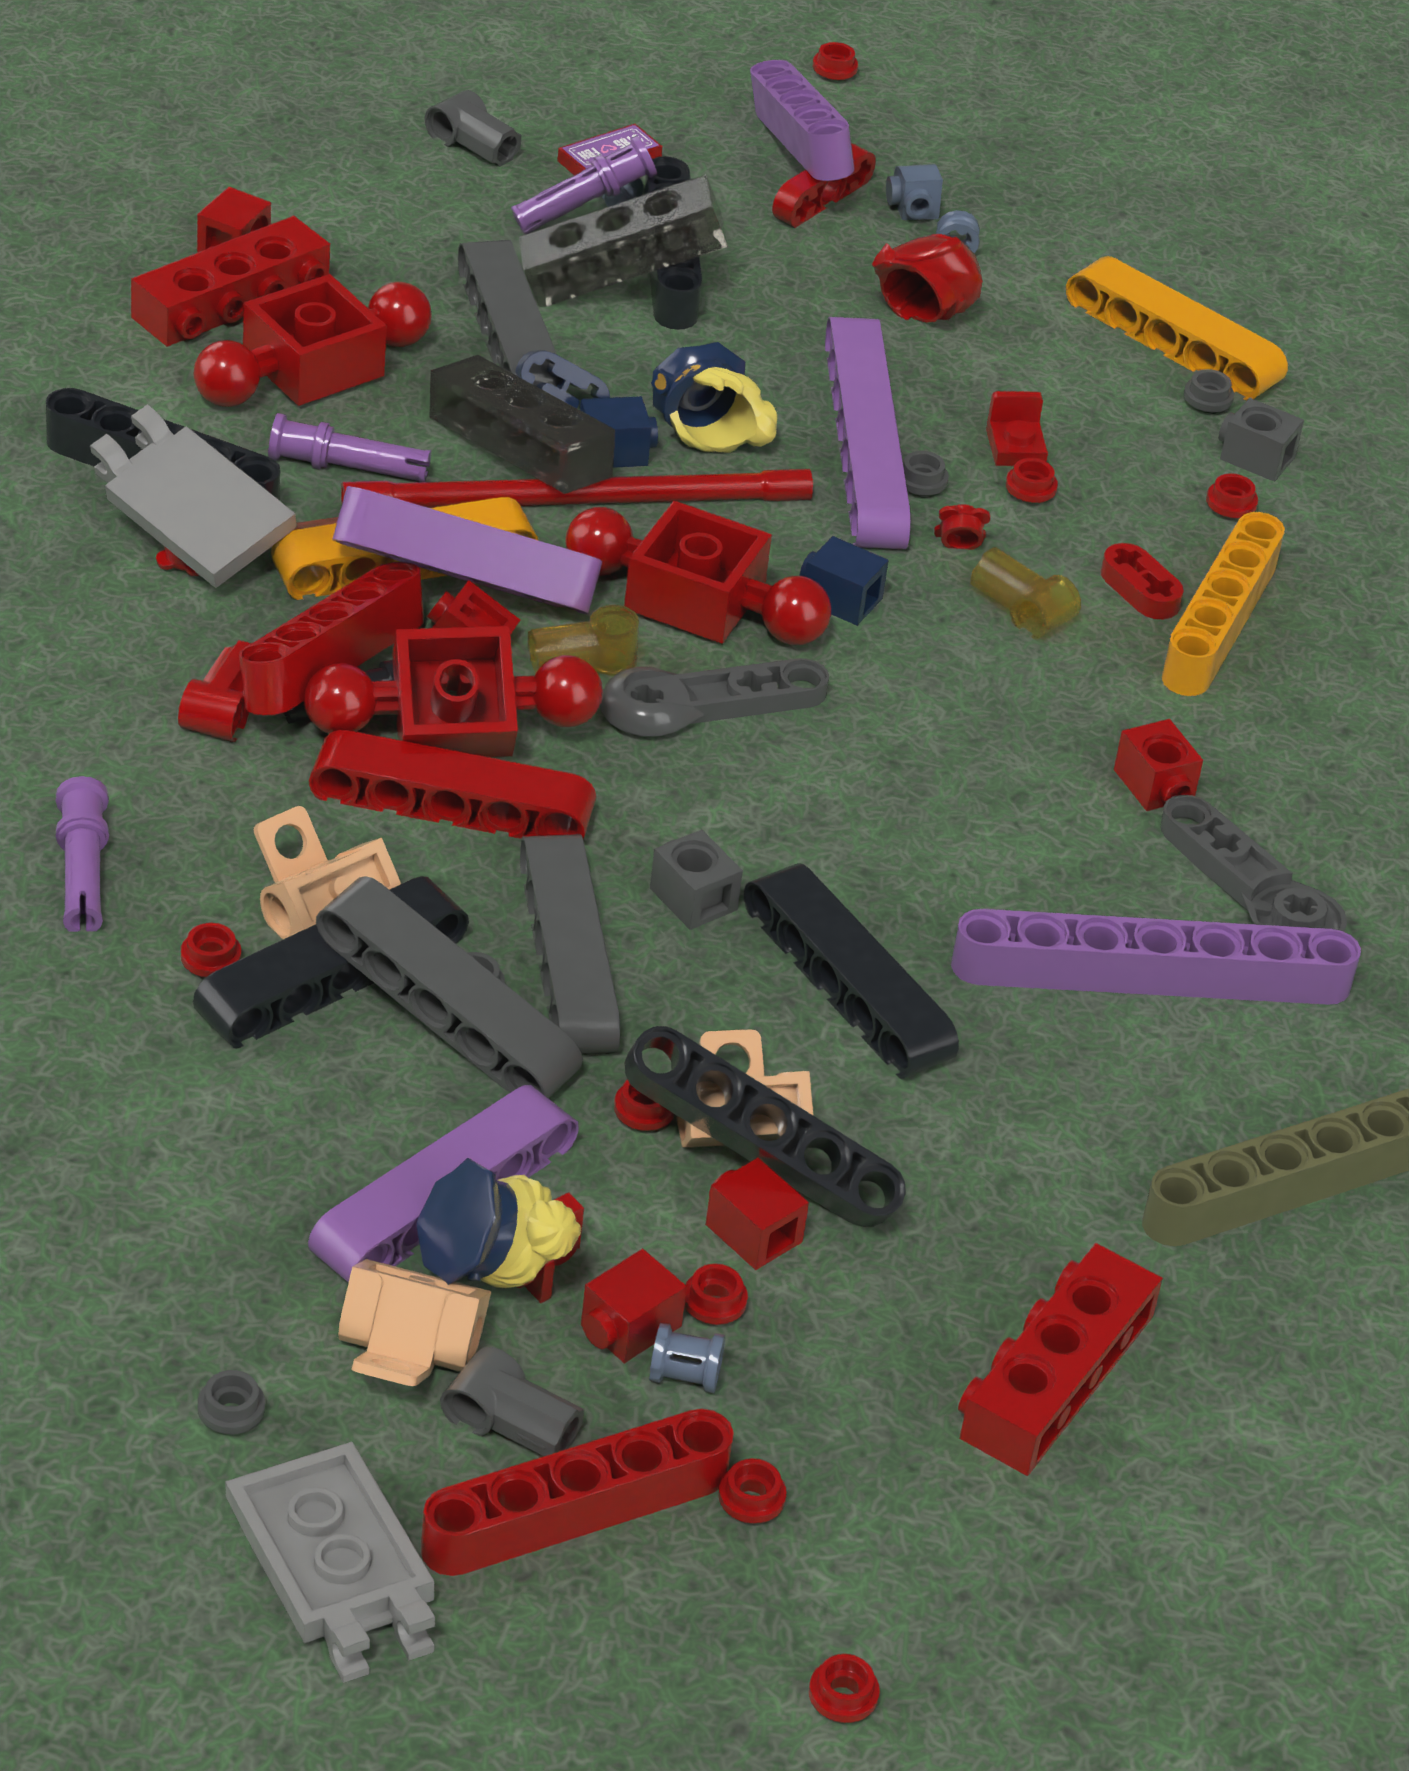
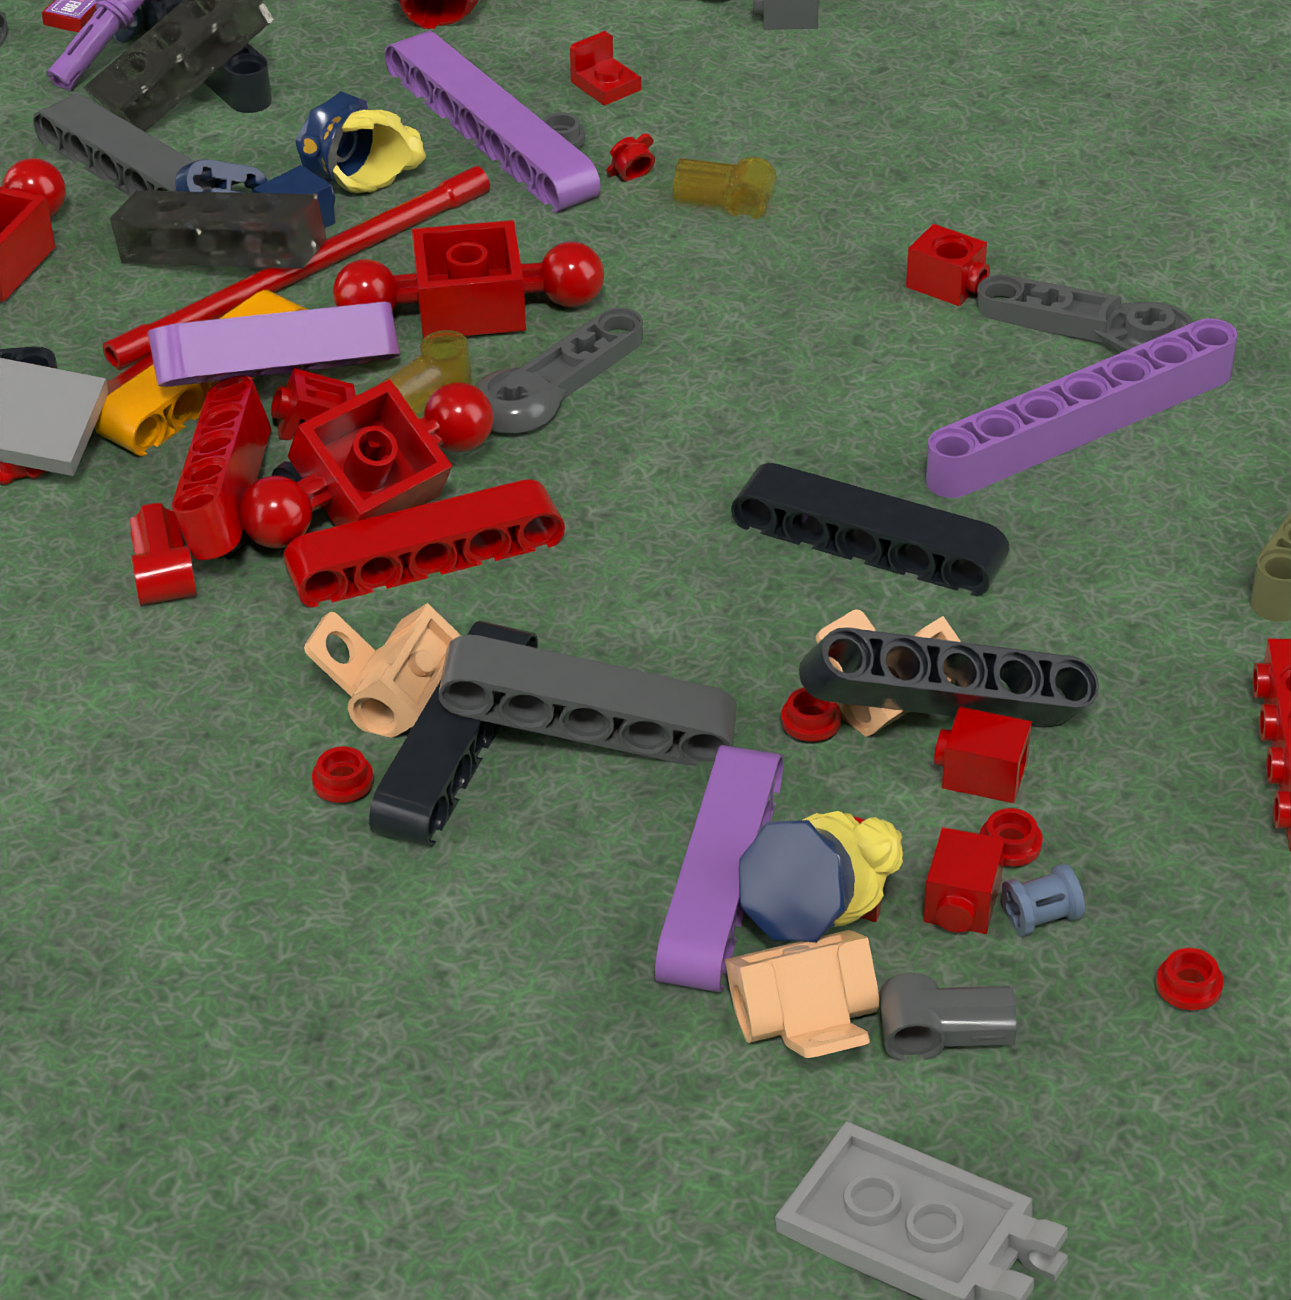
camera: 25 degrees left, 0 degrees up
(82, 837) = (144, 735): medium lavender pin -> none
(236, 1388) = (709, 1131): dark grey plate -> none
(324, 446) = (60, 321): medium lavender pin -> none
(571, 941) = (632, 612): dark grey beam -> none
(575, 1492) = (1065, 1058): red beam -> none
(696, 879) = (686, 517): dark grey brick -> none
(849, 577) = (584, 224): dark blue brick -> none
(1032, 480) = (648, 102): red plate -> none
(1142, 581) = (797, 139): red beam -> none
(1222, 604) = (878, 128): light orange beam -> none
(1232, 496) = (804, 49): red plate -> none

